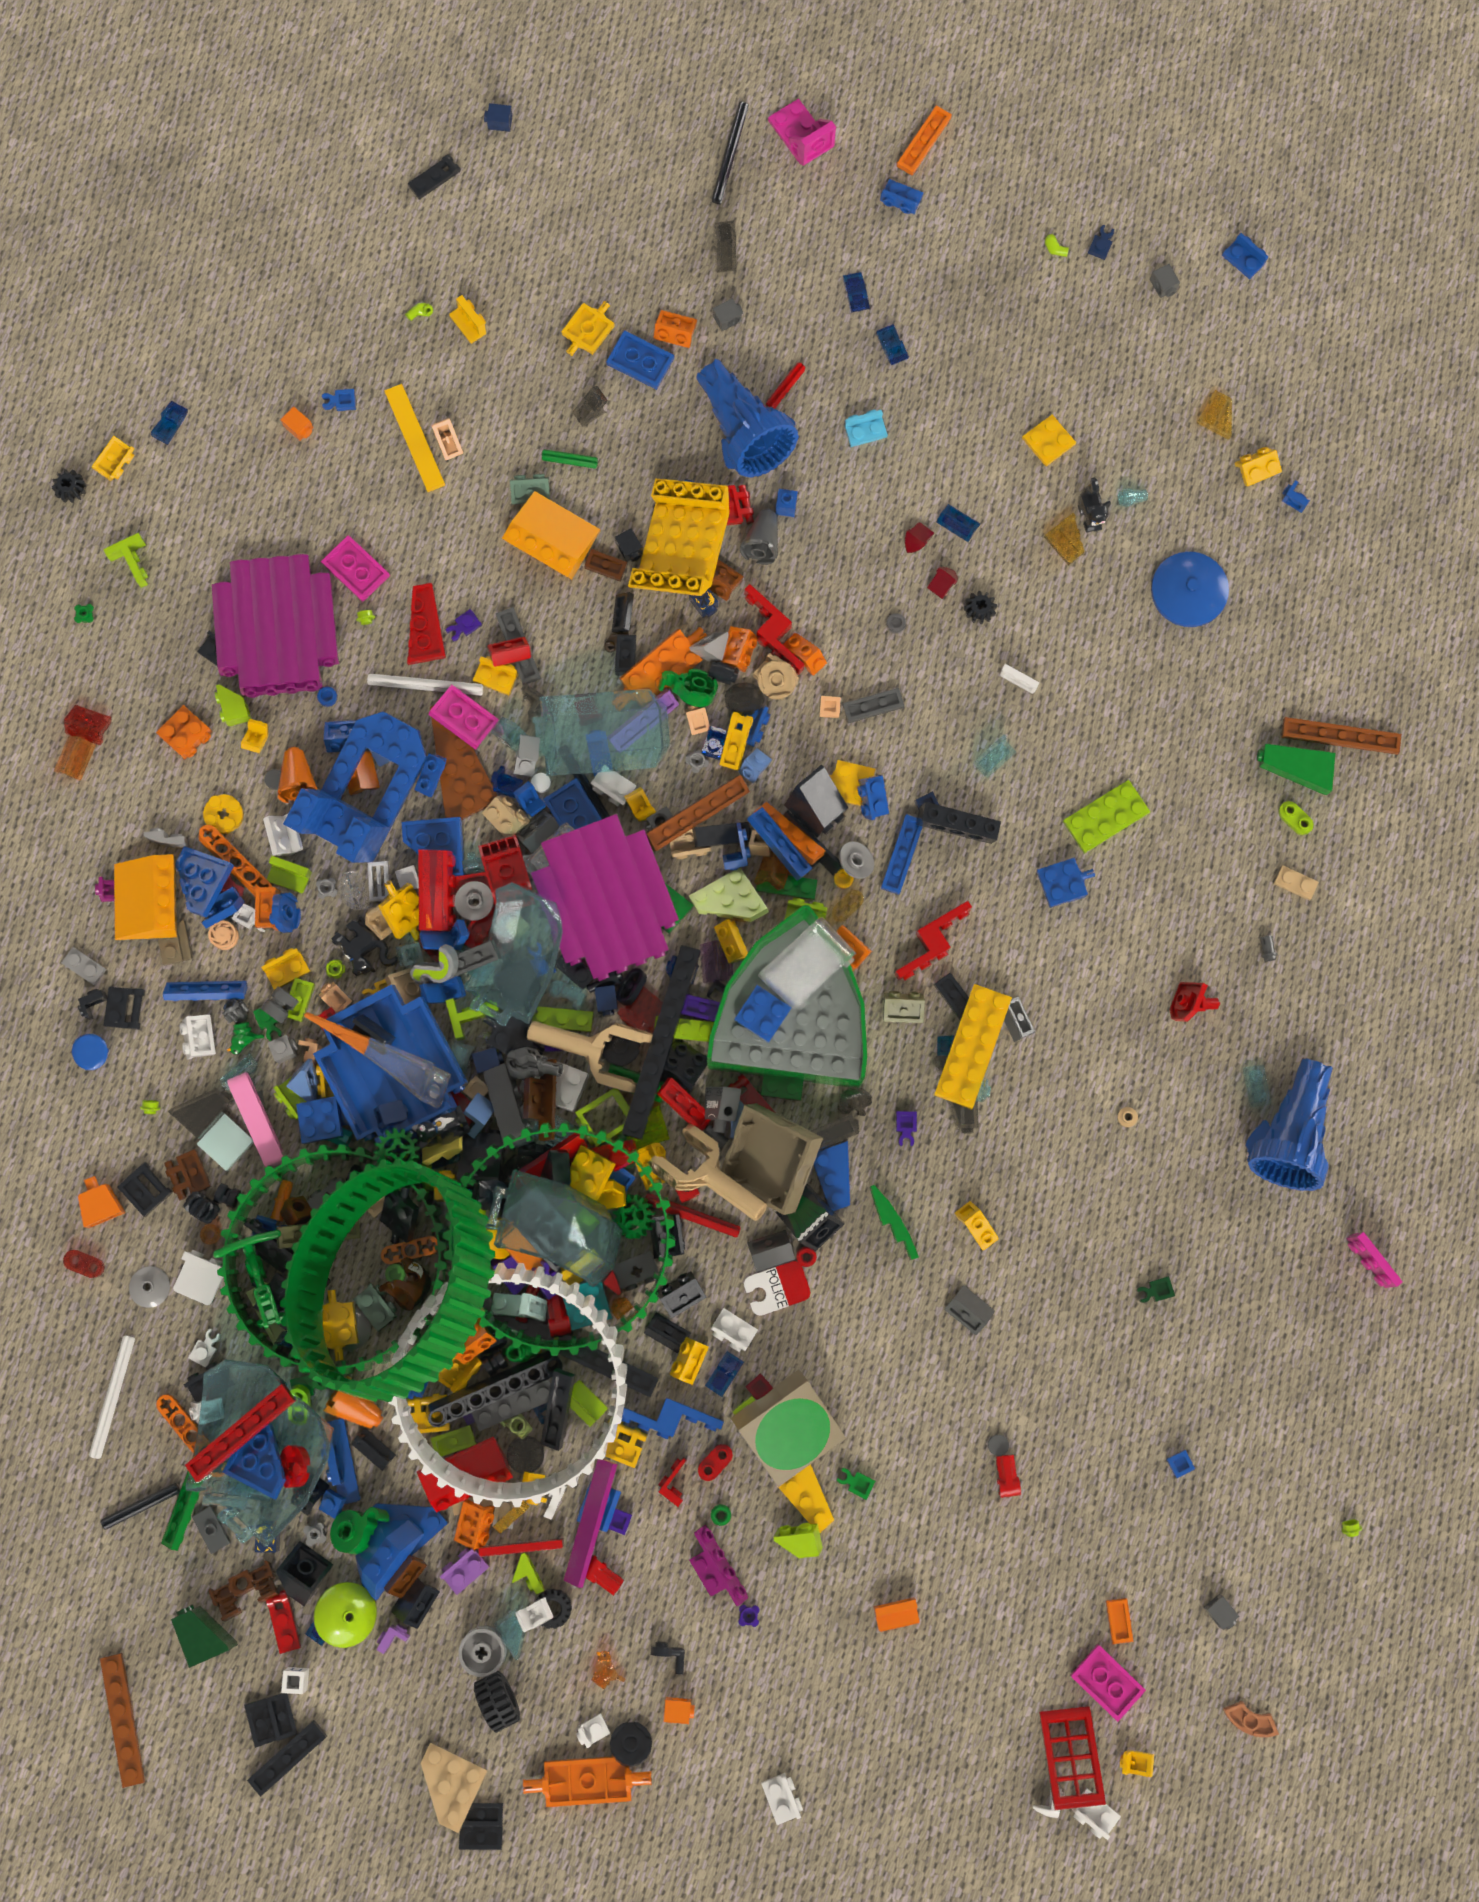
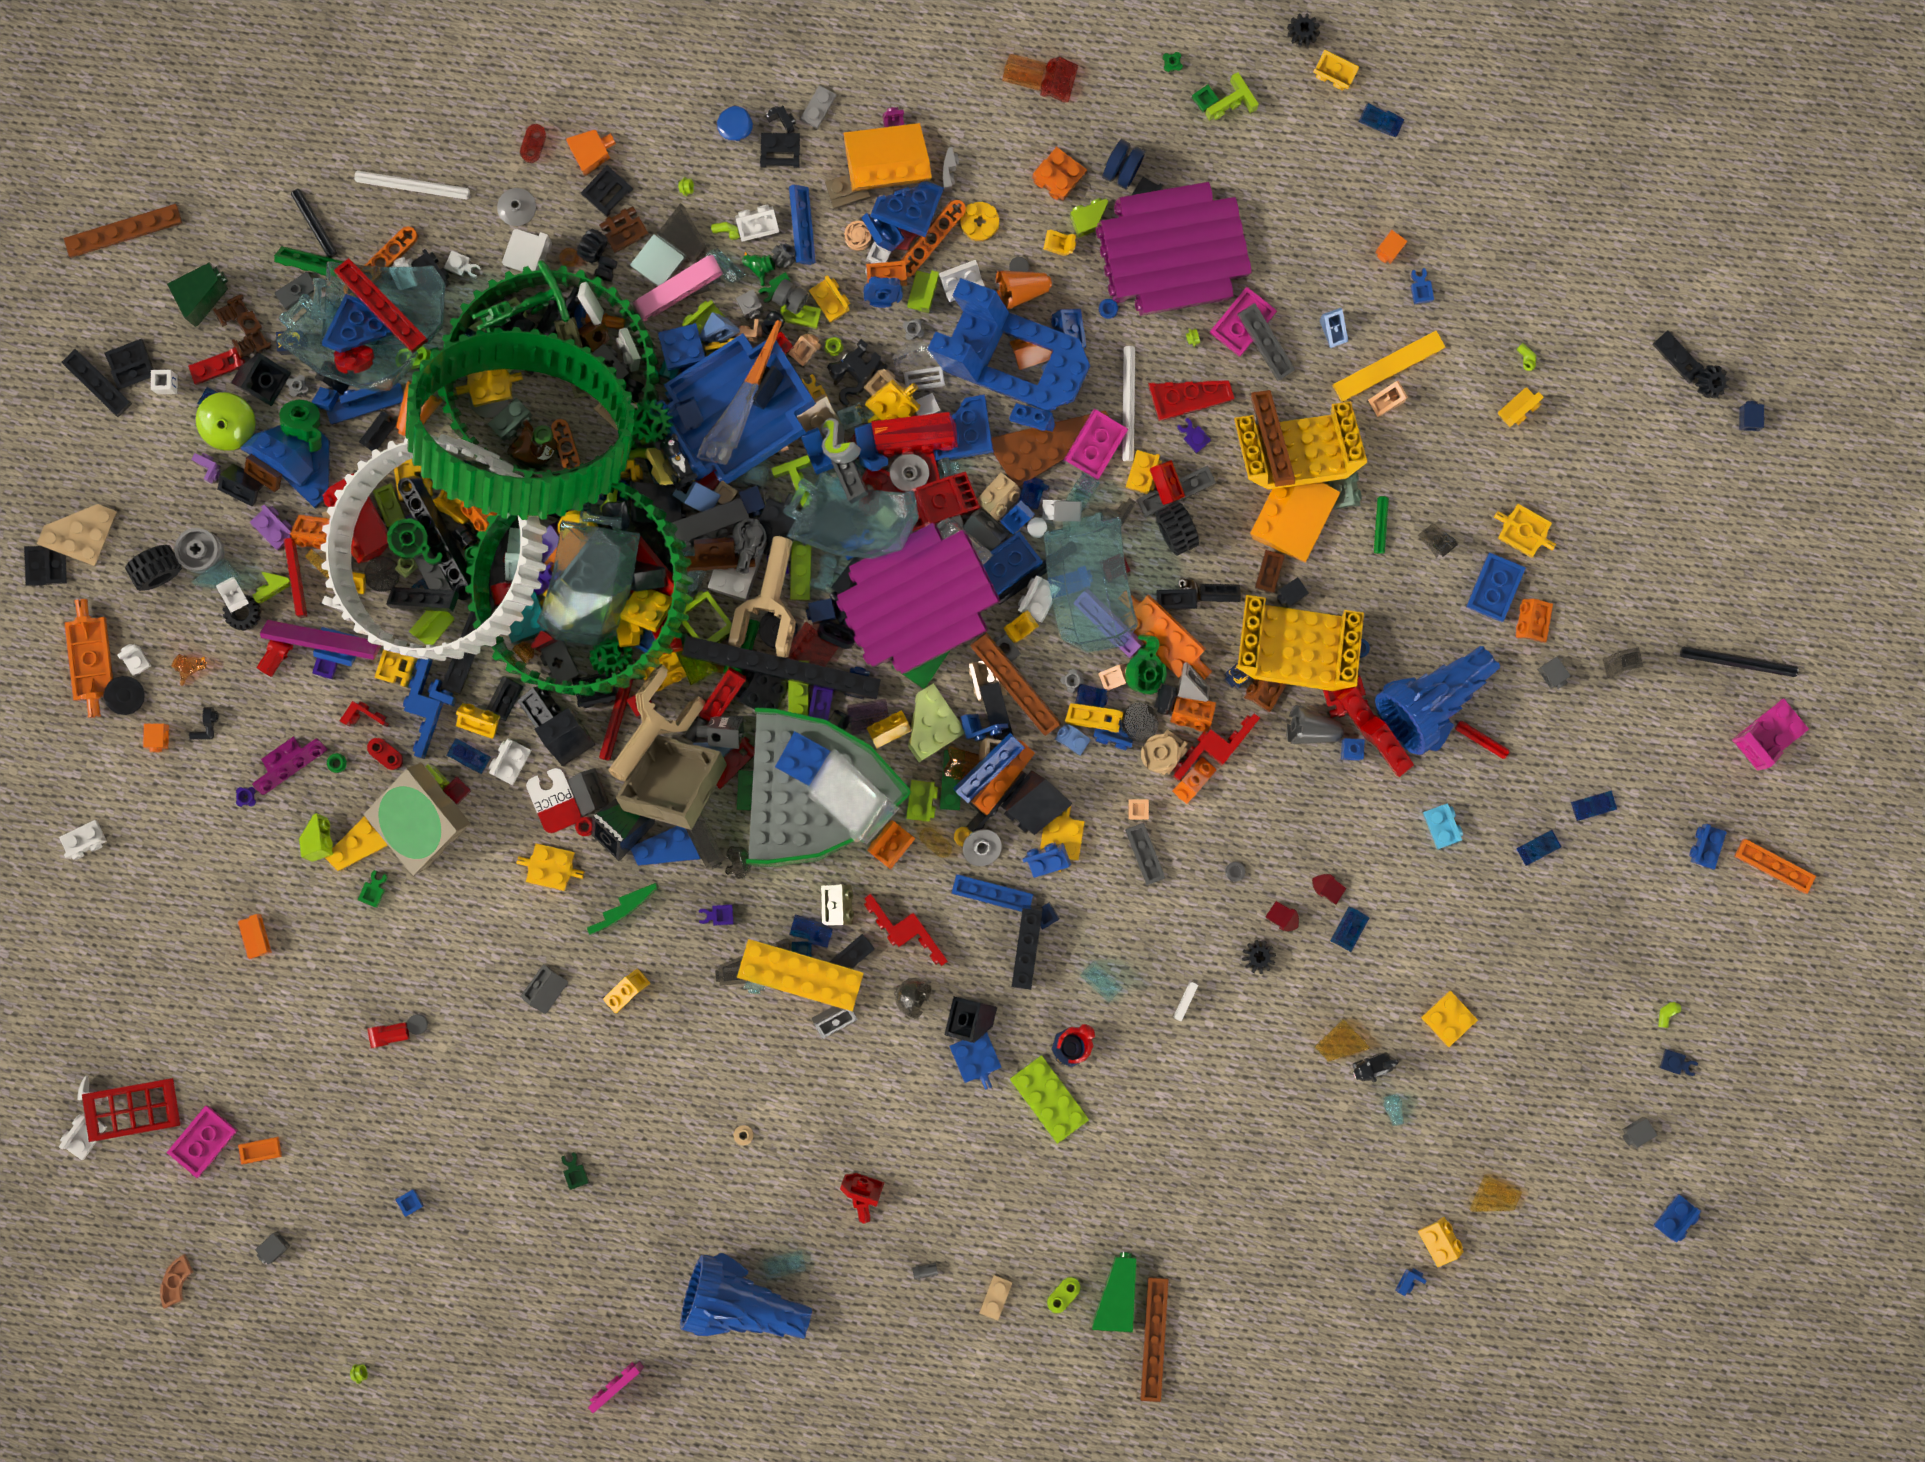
camera: 90 degrees right, 5 degrees up
(125, 585) = (1205, 98): none -> green plate
(183, 665) = (1122, 163): none -> dark blue wheel
(198, 1068) = (726, 227): none -> lime arm
(263, 1209) = (590, 303): none -> white tile
(304, 1026) = (769, 322): none -> black wheel
(316, 1176) = (630, 353): none -> white plate
(371, 483) = (1334, 327): none -> medium blue slope
(378, 546) = (1266, 342): none -> dark grey plate
(400, 1215) = (595, 432): black plate -> none
(462, 147) = (1712, 381): none -> black gear
(476, 544) = (1272, 438): none -> dark orange plate
(488, 517) = (1317, 447): none -> yellow slope
(500, 1406) = (417, 547): none -> green piece
(556, 644) = (1177, 528): none -> black tyre
(660, 1394) = (443, 696): none -> blue bracket
(714, 1268) = (565, 736): none -> black slope
(770, 478) = (1375, 731): none -> red bracket
(845, 1295) = (550, 867): none -> yellow plate
(928, 1032) = (809, 929): none -> clear blue slope
(999, 939) = (911, 996): none -> clear smoke cylinder
(1025, 886) = (969, 1019): none -> black slope
(1055, 787) = (1073, 1045): none -> piece
(1137, 1763) = (130, 1172): yellow bracket -> none
(1190, 589) = (1299, 1175): blue dish -> none

